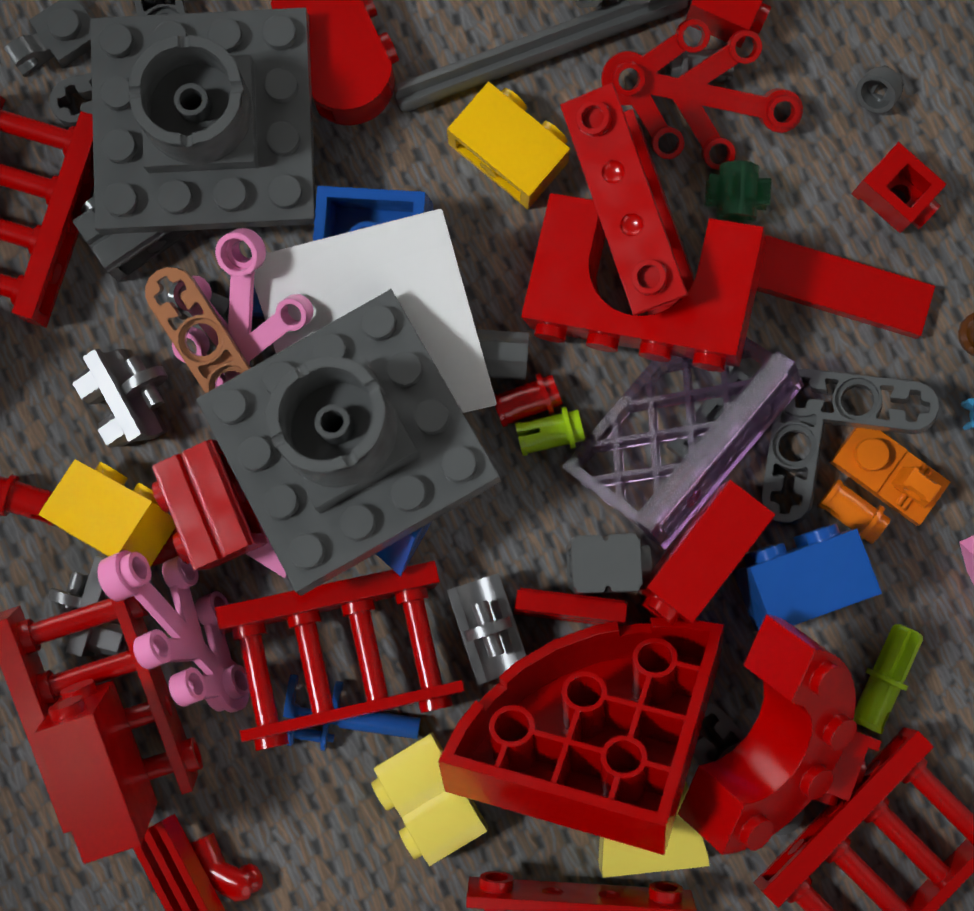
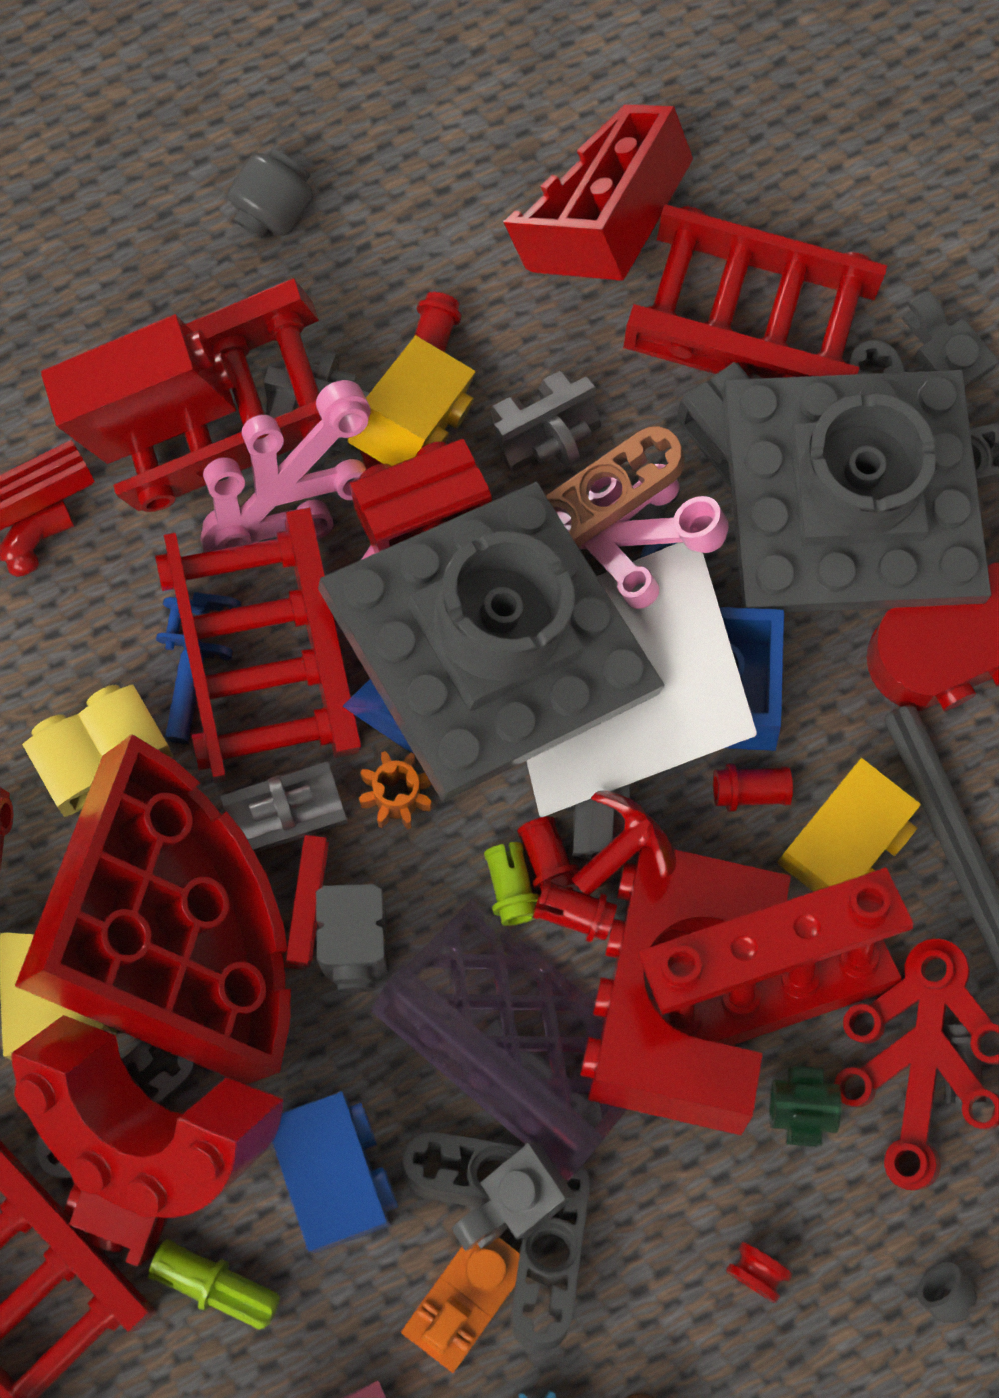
camera: 85 degrees right, 10 degrees down
(463, 516) = (389, 774): none -> orange gear
(465, 224) = (752, 786): none -> red pin
(514, 317) = (638, 832): none -> red plant
(579, 375) = (575, 910): none -> red pin
(704, 554) = (361, 1049): red brick -> none
(820, 422) = (522, 1197): none -> dark grey plate
(845, 287) = (696, 1237): red tile -> none
(855, 511) = (416, 1249): orange pin -> none
(868, 235) = (759, 1272): none -> red bush
(906, 173) = (841, 1306): red brick -> none

